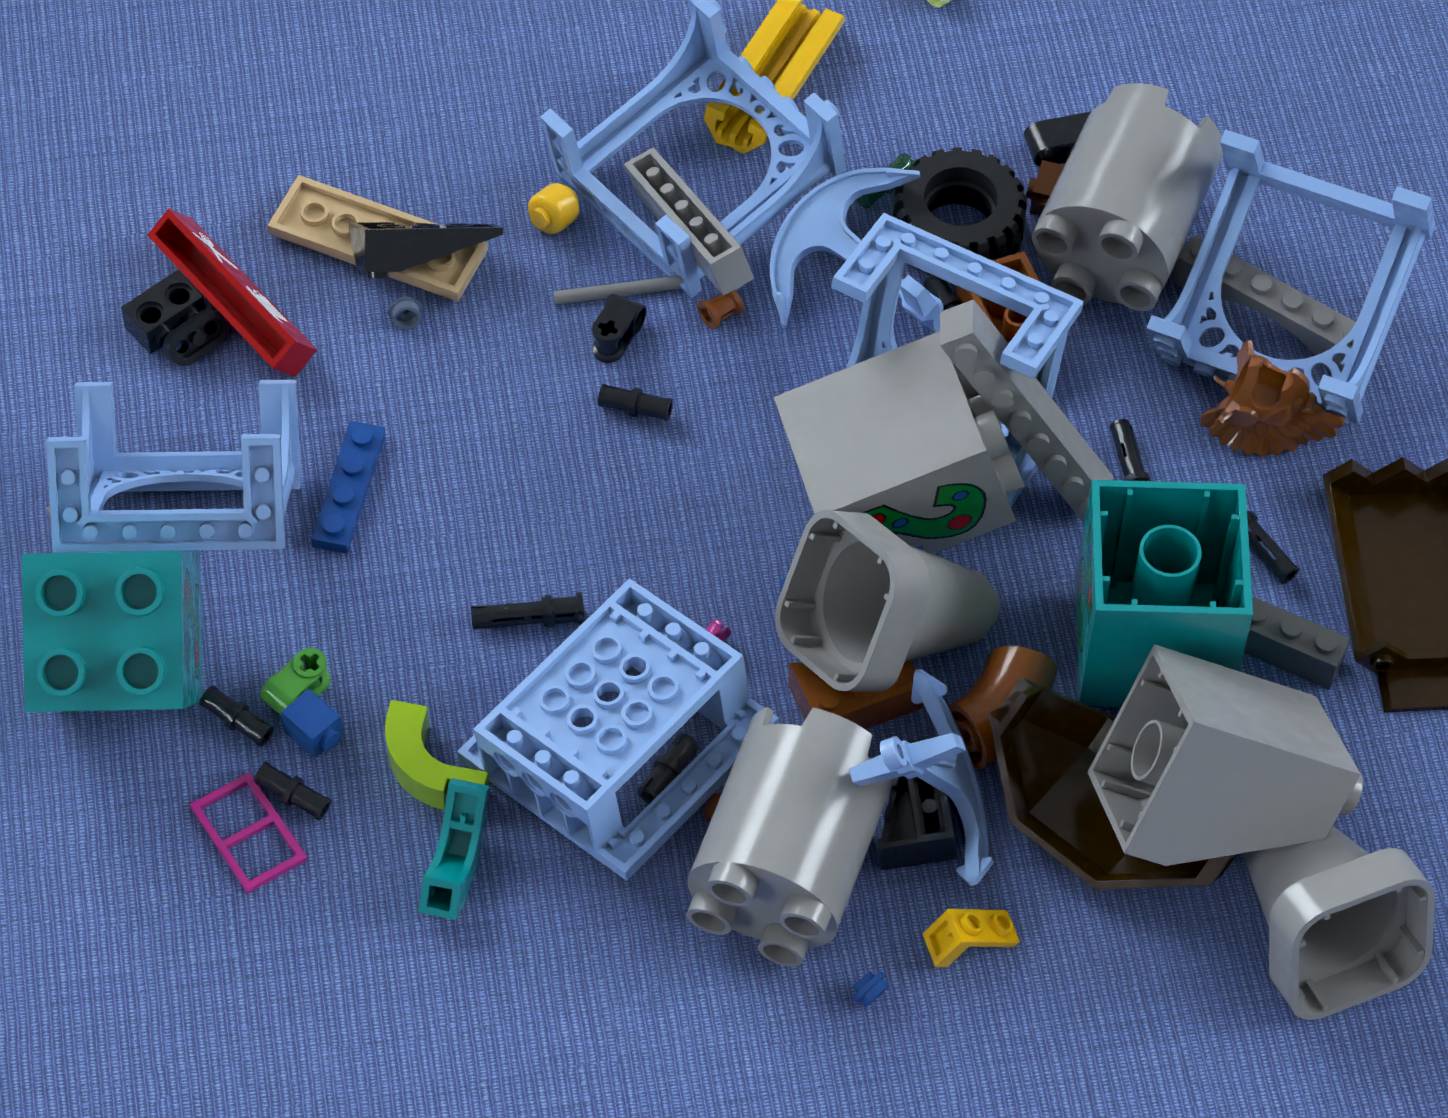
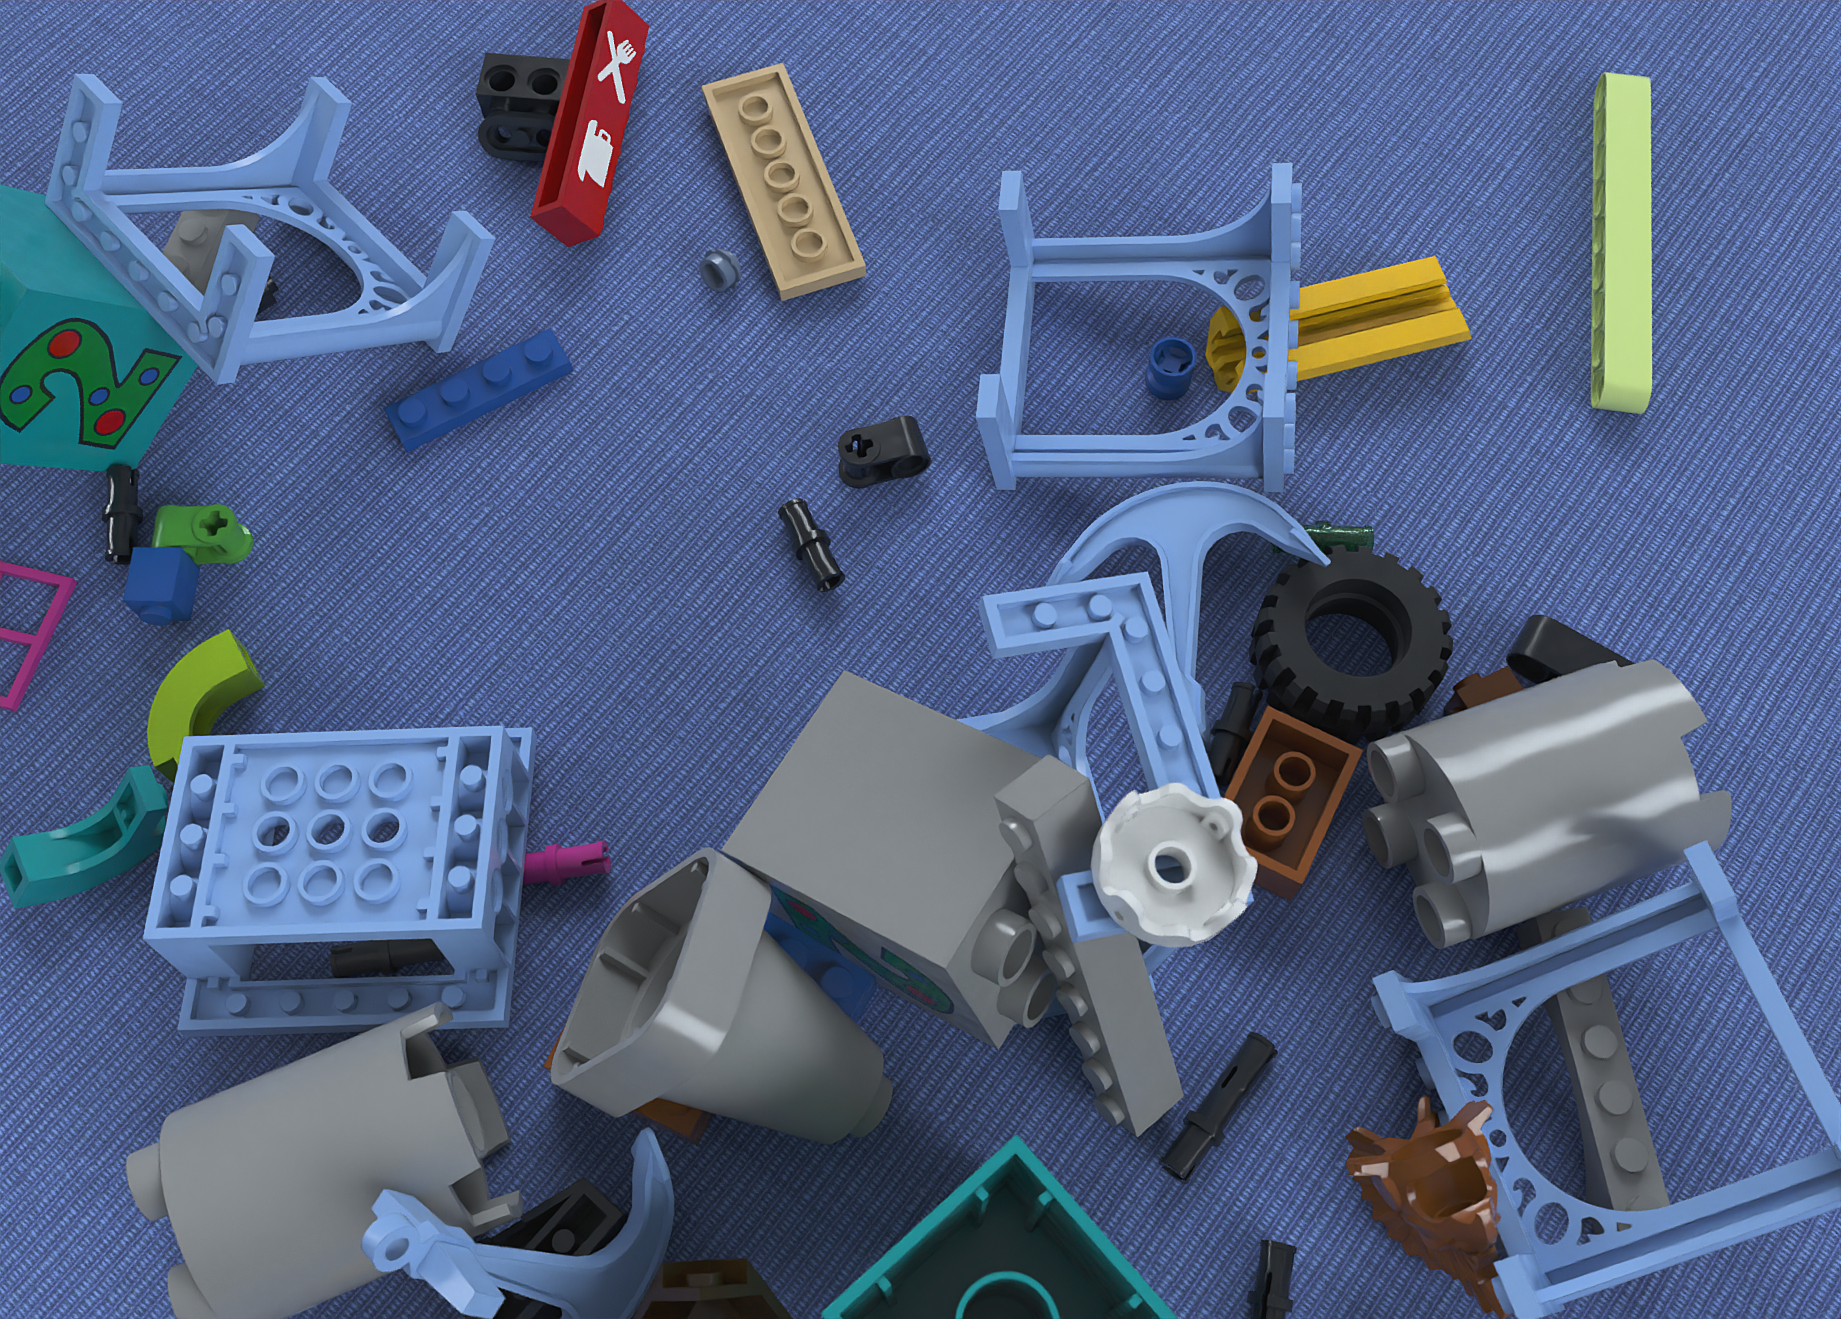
camera: 50 degrees right, 10 degrees up
(292, 790) = (72, 633): black pin -> none
(393, 248) = (767, 193): black wedge -> none
(547, 611) = (479, 676): black pin -> none
(553, 208) = (964, 285): yellow head -> none
(620, 289) = (927, 412): light grey bar -> none
(667, 194) = (1044, 409): light grey brick -> none
(712, 160) = (1170, 368): none -> blue wheel
(720, 308) = (1002, 523): dark orange bush -> none
(997, 680) = (771, 1225): dark orange brick -> none
(1041, 290) = (1201, 837): none -> white plate

